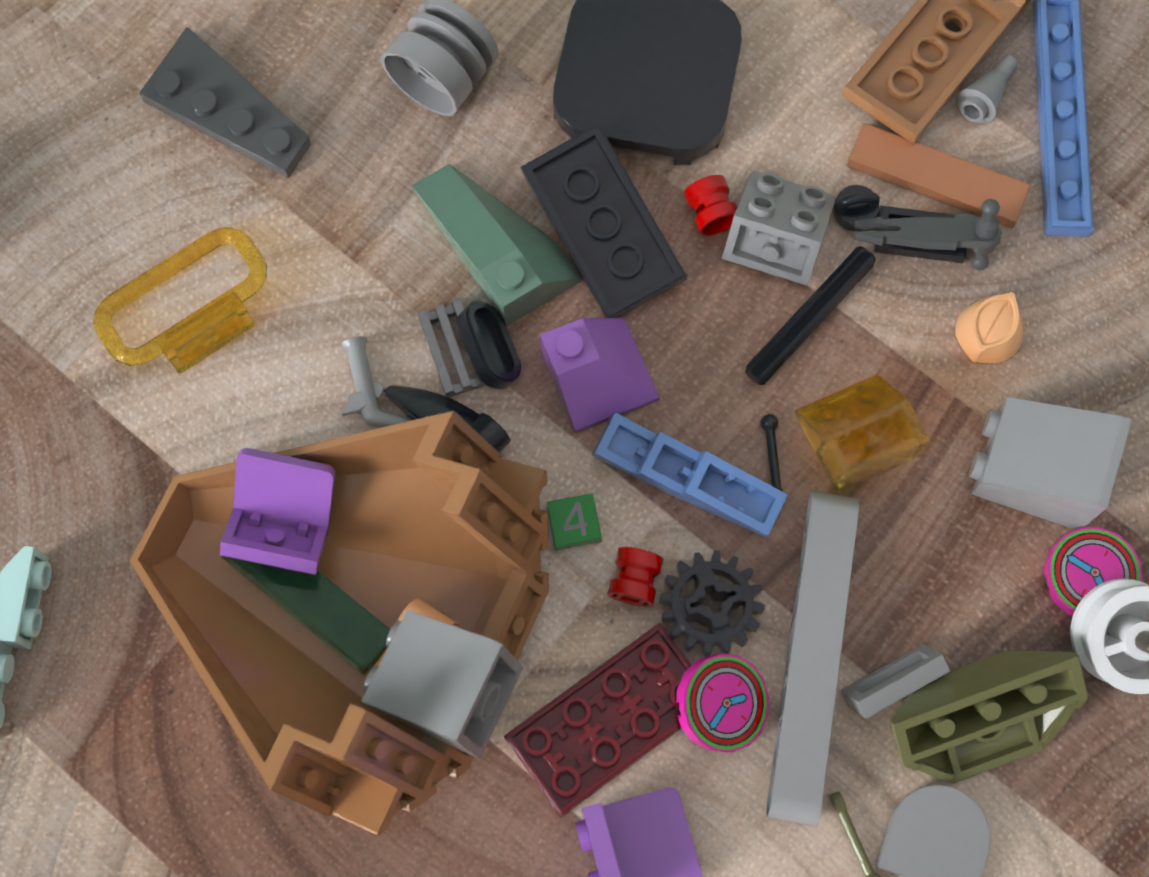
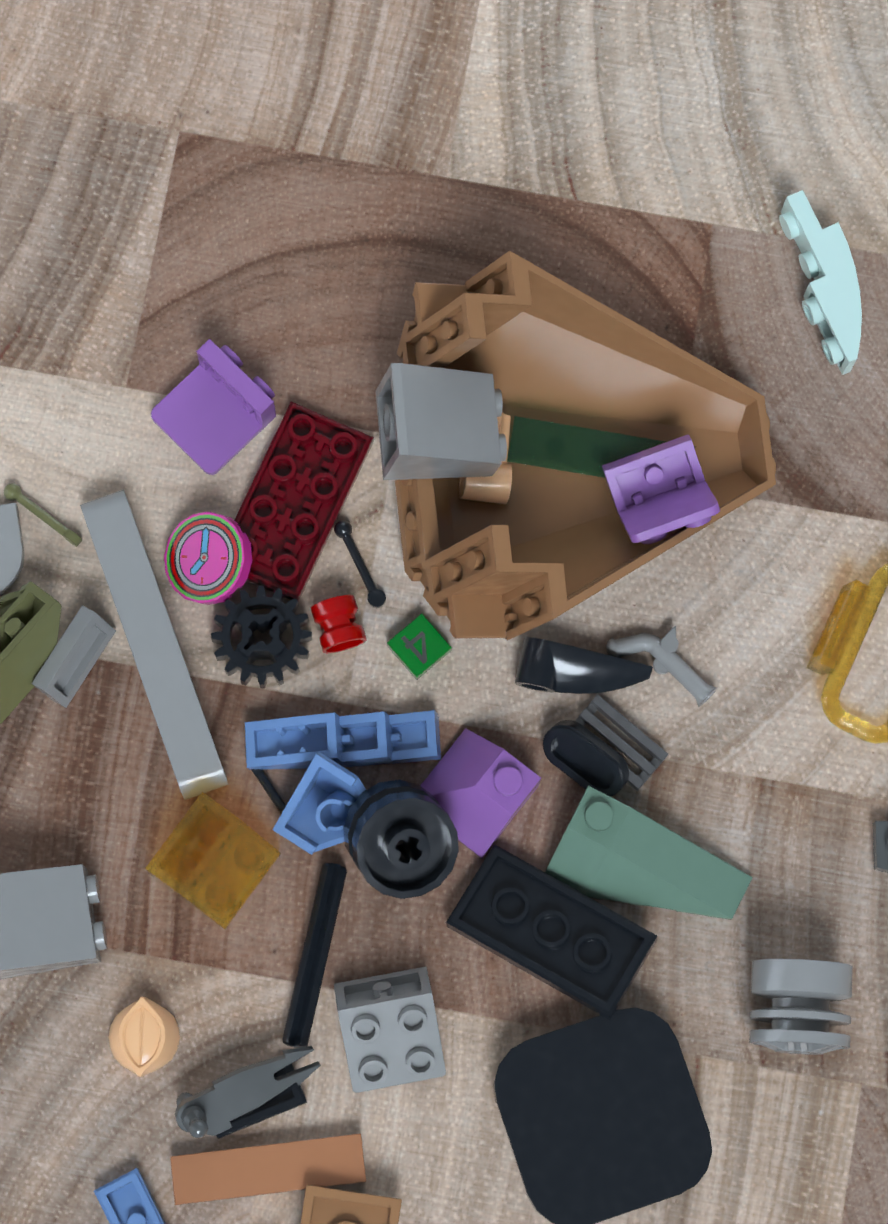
camera: 145 degrees right, 5 degrees up
(586, 589) = (376, 597): none -> black hinge
(689, 351) = (401, 839): none -> black wheel
(711, 203) = (462, 1009): red wheel -> none
(740, 422) = (319, 805): none -> medium blue slope
(855, 204) = (328, 1089): black tile -> none

